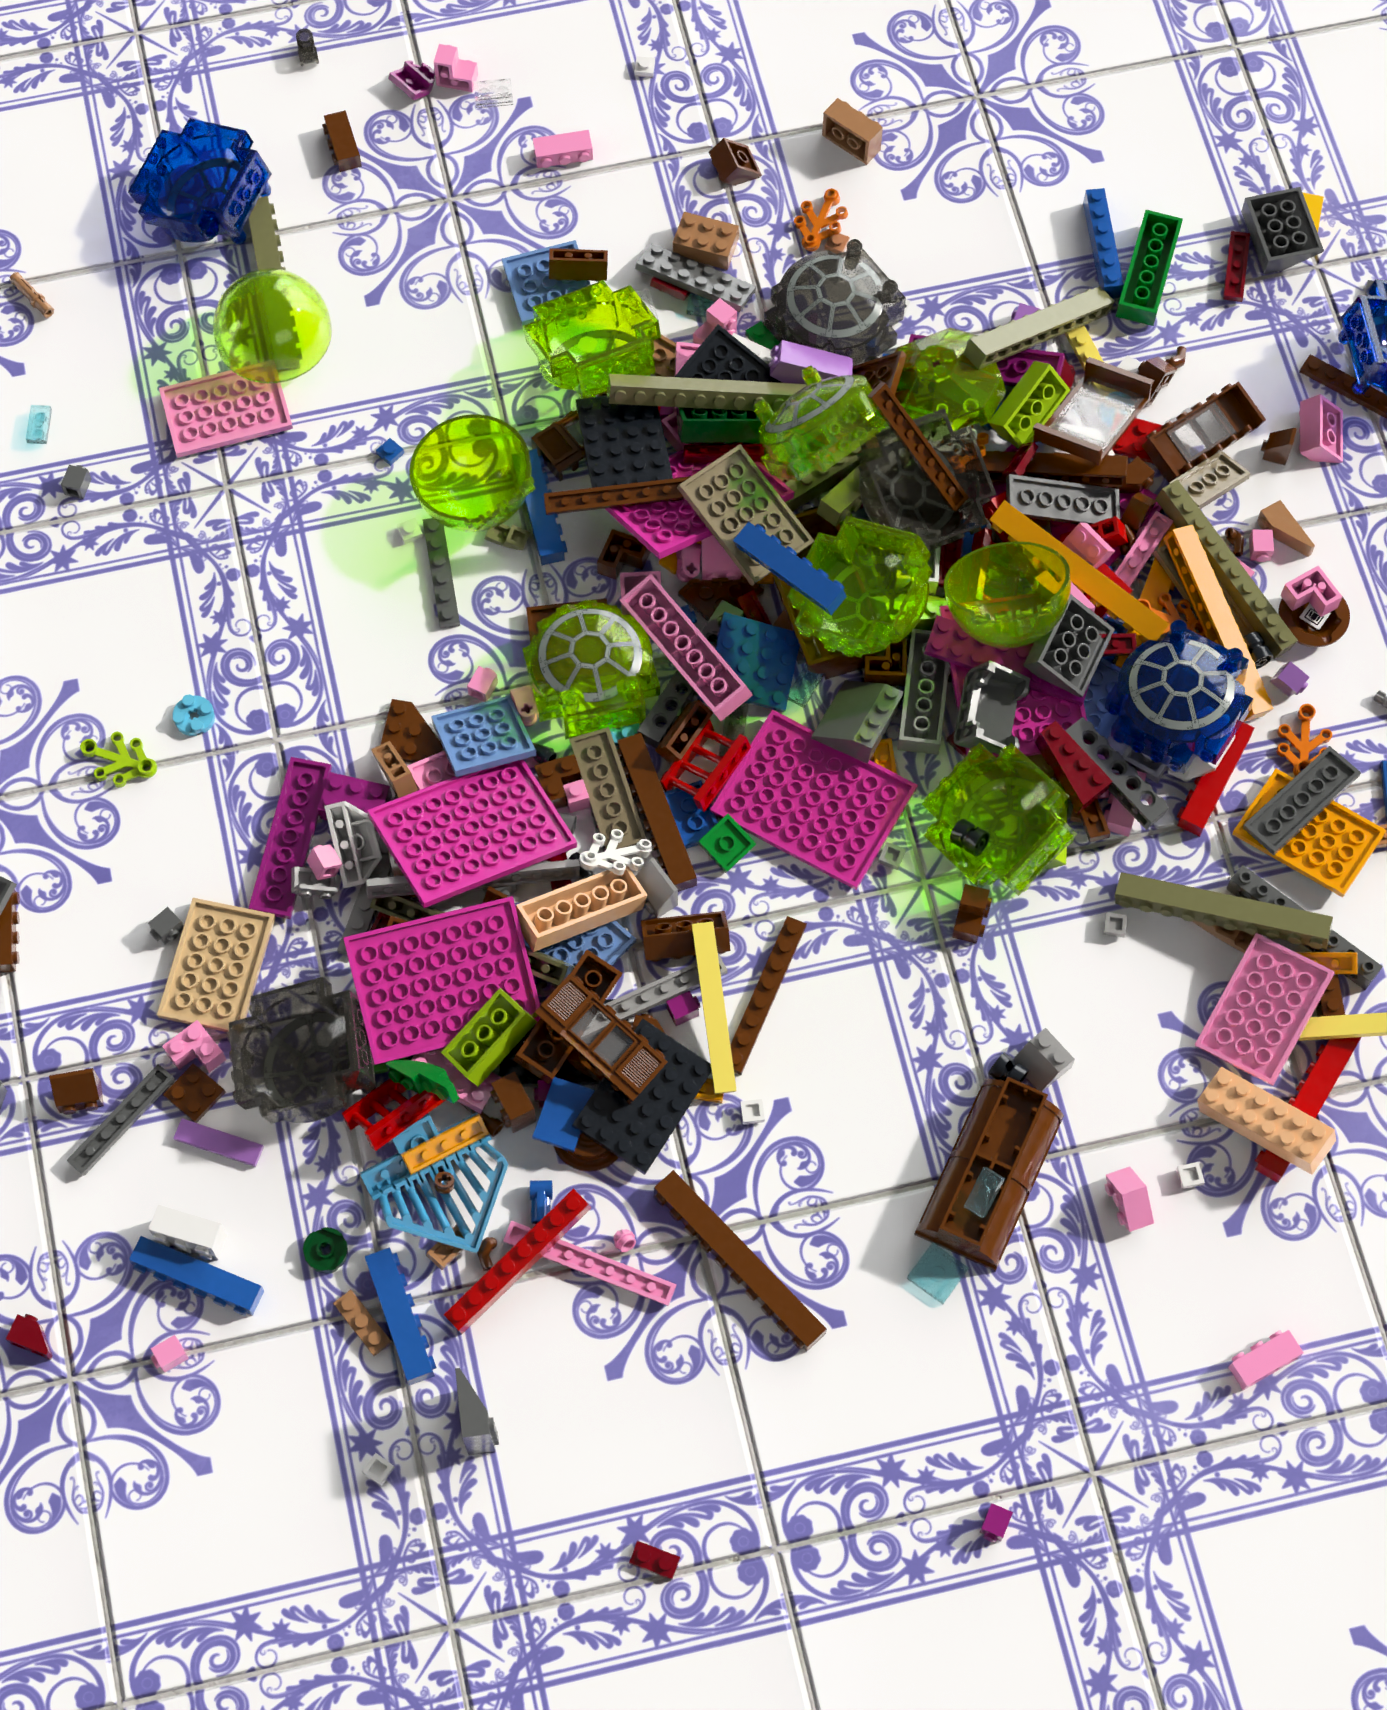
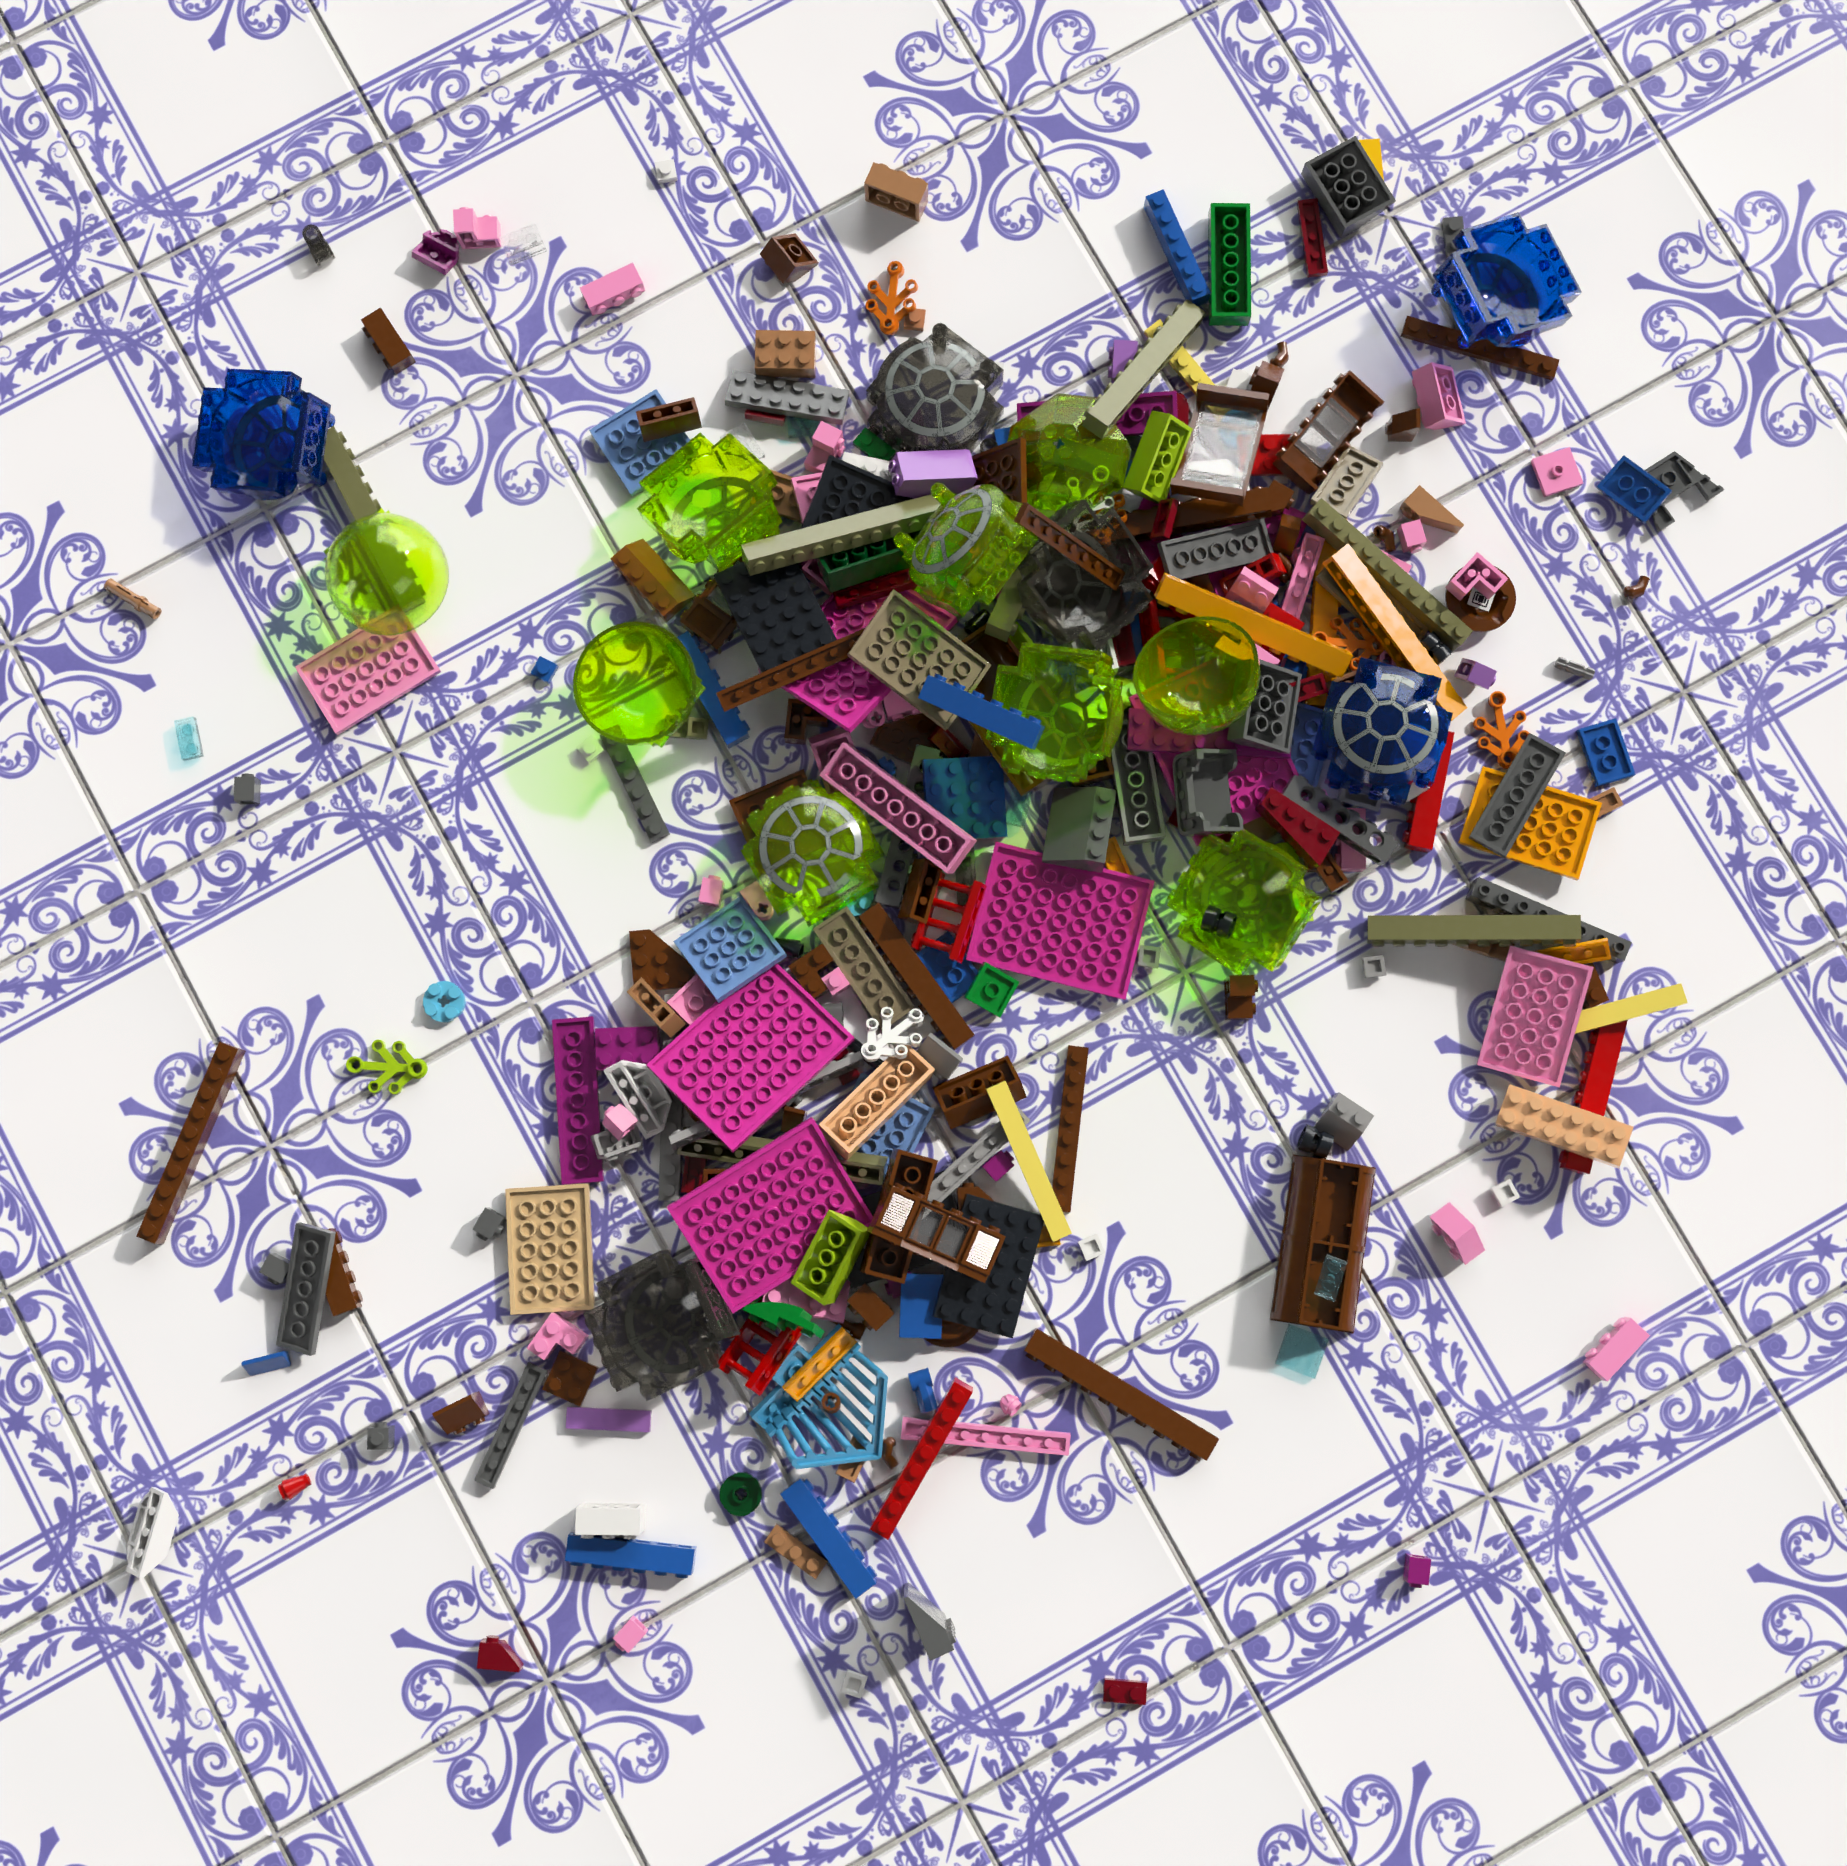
camera: 15 degrees left, 15 degrees up
(517, 398) = (652, 579): none -> dark orange slope

